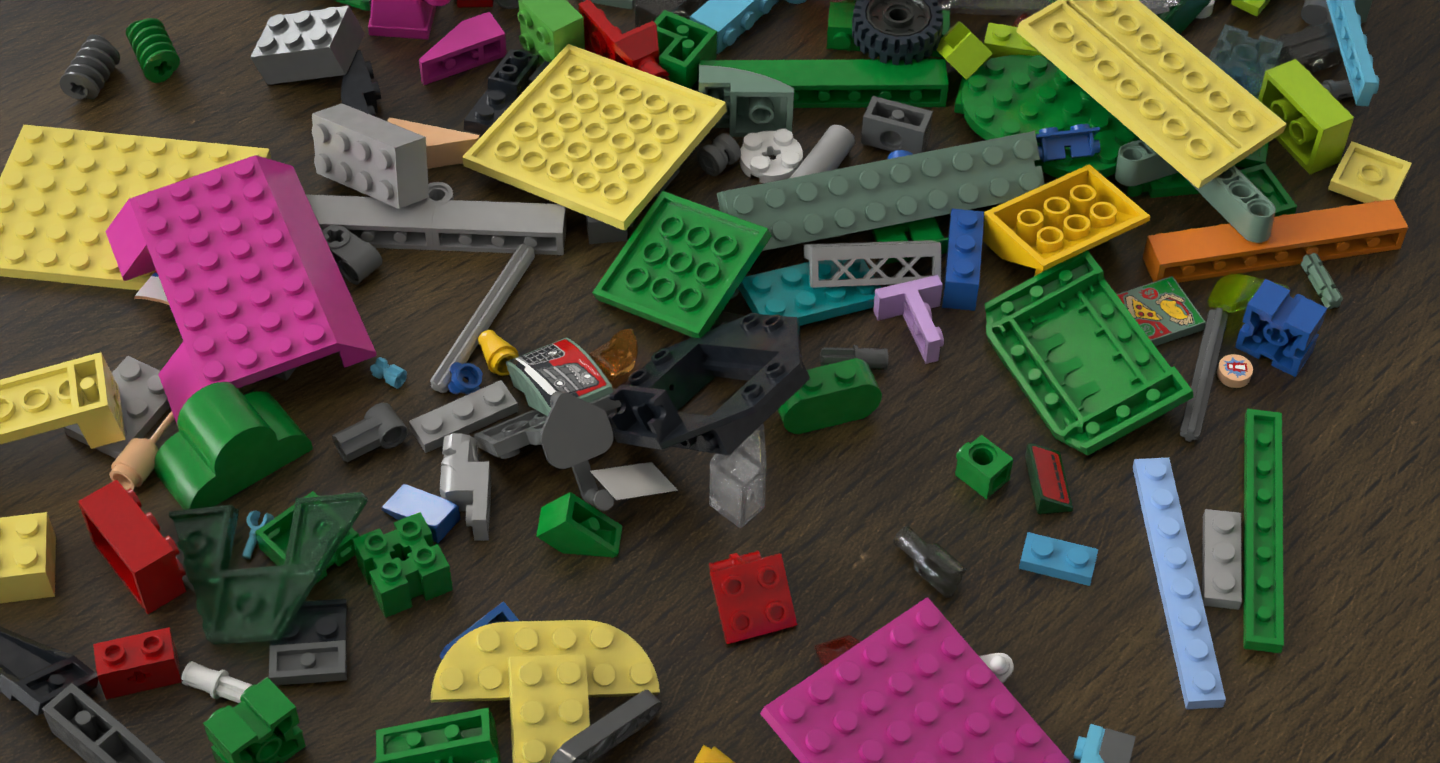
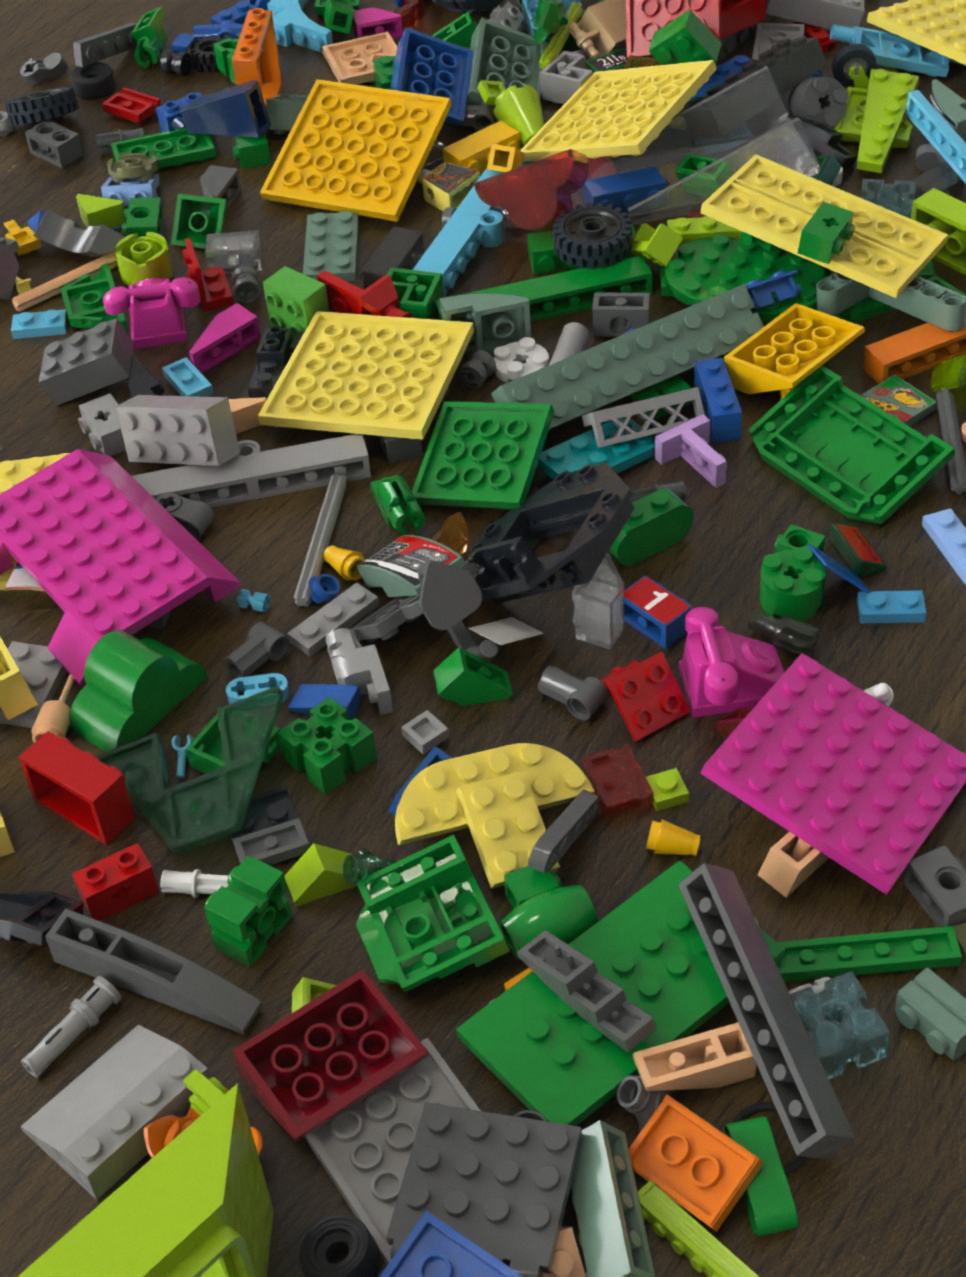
camera: 10 degrees left, 5 degrees down
(298, 118) = (102, 424): none -> light grey brick
(348, 709) = (317, 874): none -> lime slope
(356, 479) = (255, 684): none -> medium azure beam
(380, 715) = (362, 865): none -> clear green piece
(409, 90) = (187, 379): none -> medium azure plate
(509, 575) = (425, 732): none -> light grey plate
(575, 297) = (397, 503): none -> green plate
(684, 576) = (579, 695): none -> dark grey piece
(688, 685) = (617, 779): none -> clear red plate
(737, 709) = (668, 789): none -> lime plate
(801, 498) = (655, 611): none -> brick
(848, 588) = (724, 668): none -> dark pink piece
(957, 506) = (792, 584): none -> green brick
(1013, 502) = (839, 568): none -> blue window
(1142, 94) = (826, 233): none -> green brick

